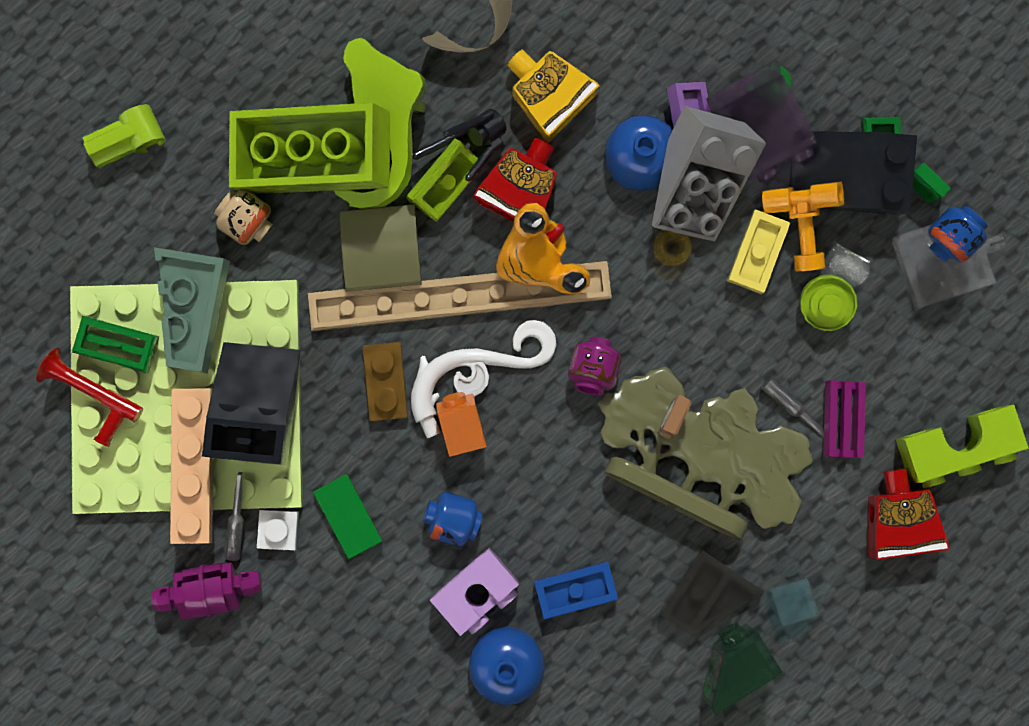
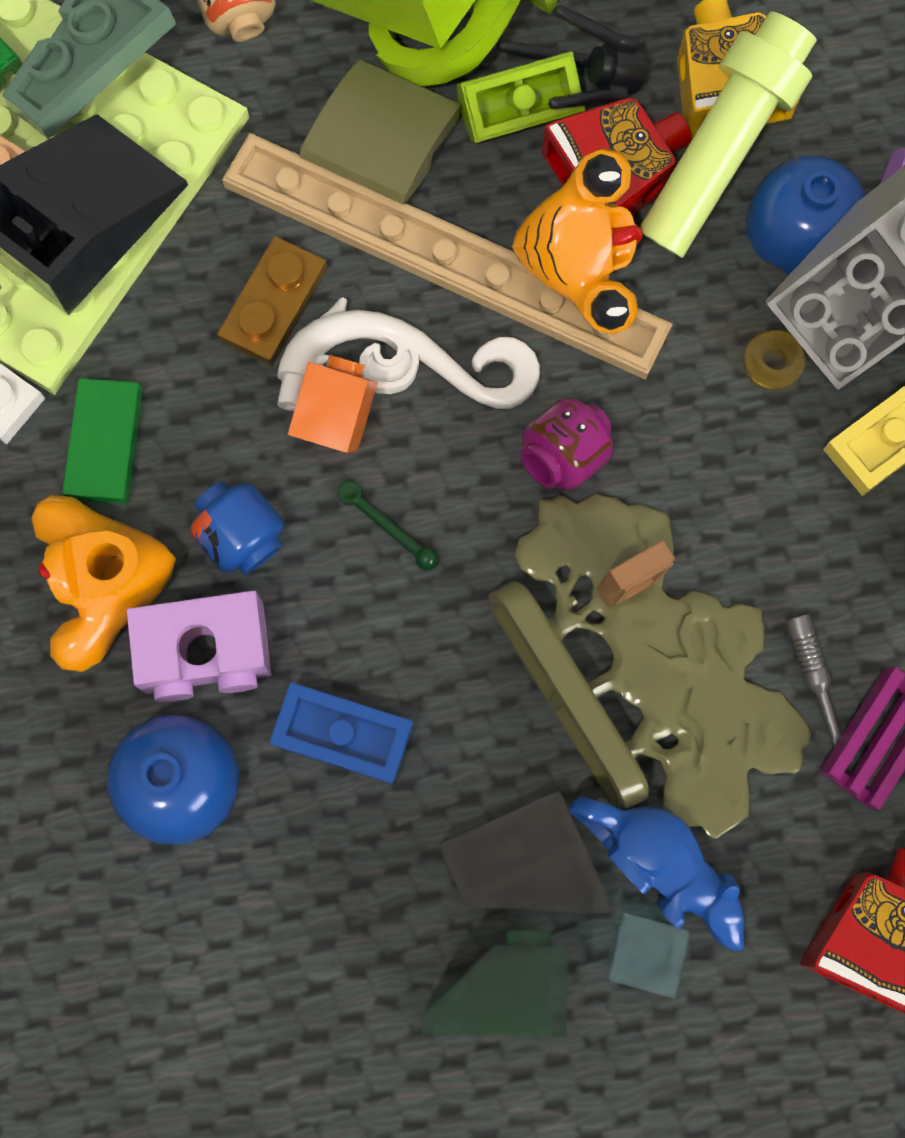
camera: 35 degrees right, 10 degrees down
(399, 587) = (99, 571): none -> light orange head
(495, 461) = (351, 494): none -> dark green hinge
(577, 103) = (762, 75): none -> yellowish green piece
(770, 549) = (662, 853): none -> blue animal

